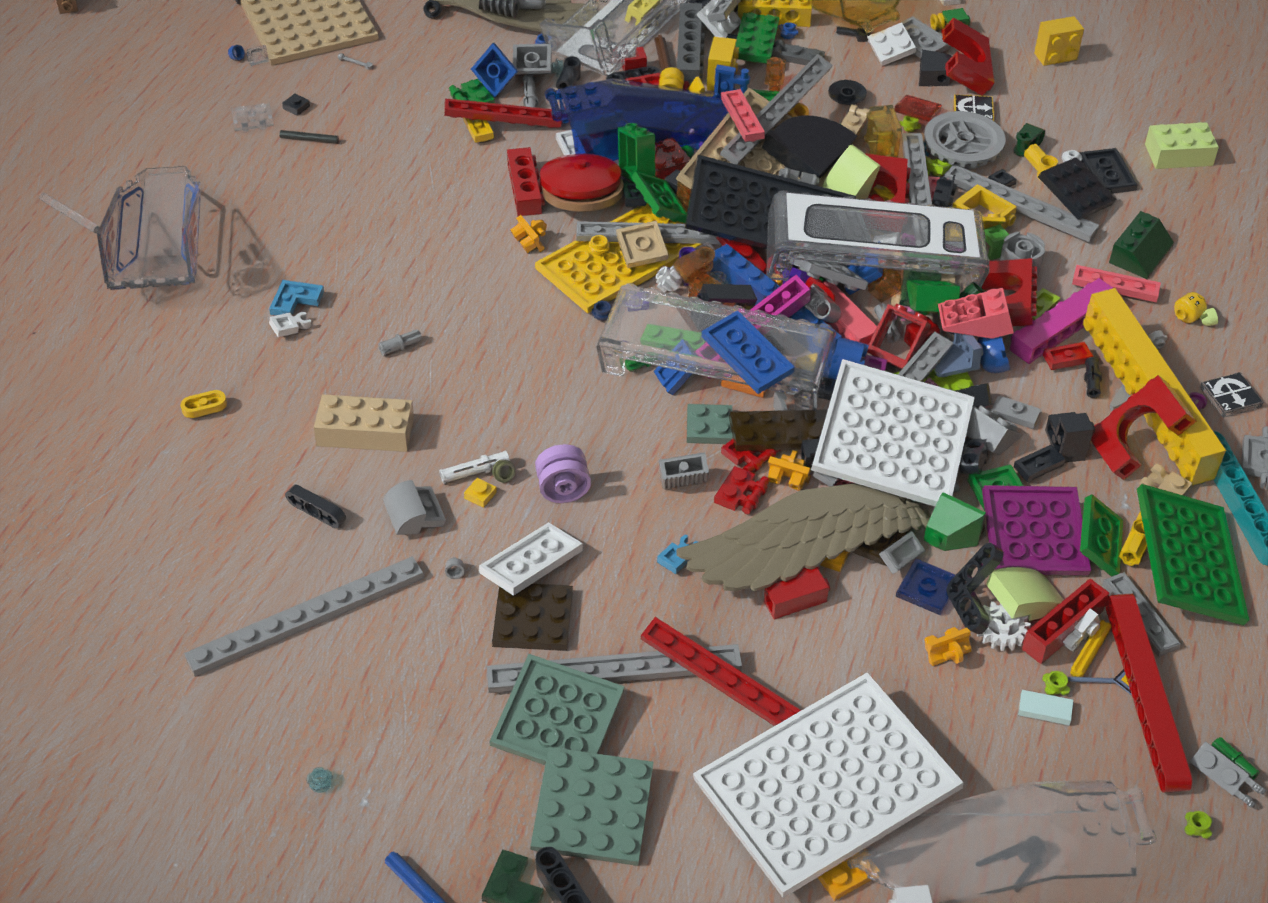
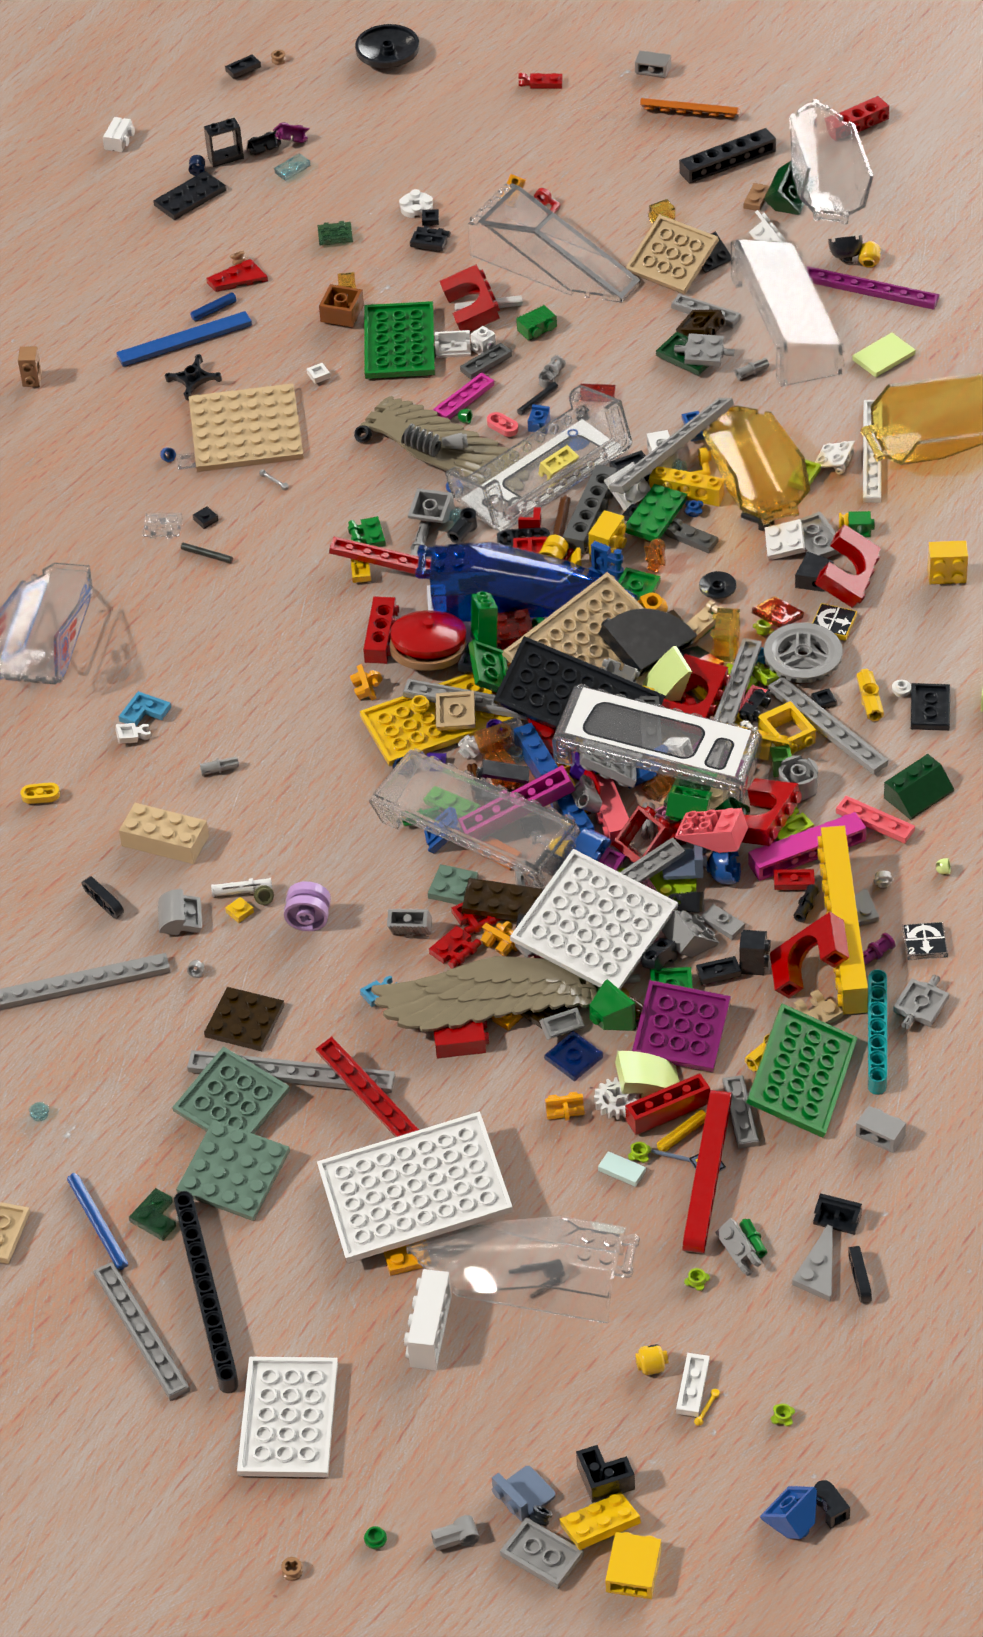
camera: 20 degrees right, 0 degrees up
(494, 70) = (390, 512): blue slope -> none
(530, 558) = (257, 971): white plate -> none
(743, 115) = (583, 602): coral plate -> none
(748, 352) = (487, 829): blue plate -> none
(779, 107) = (626, 597): light grey plate -> none
(963, 587) = (597, 1059): black beam -> none
(1028, 136) = (870, 659): dark green piece -> none
(1077, 188) = (882, 720): black plate -> none
(1085, 627) = (679, 1113): white plate -> none
(1101, 535) = (735, 1040): green plate -> none
(1190, 307) = (929, 854): yellow head -> none

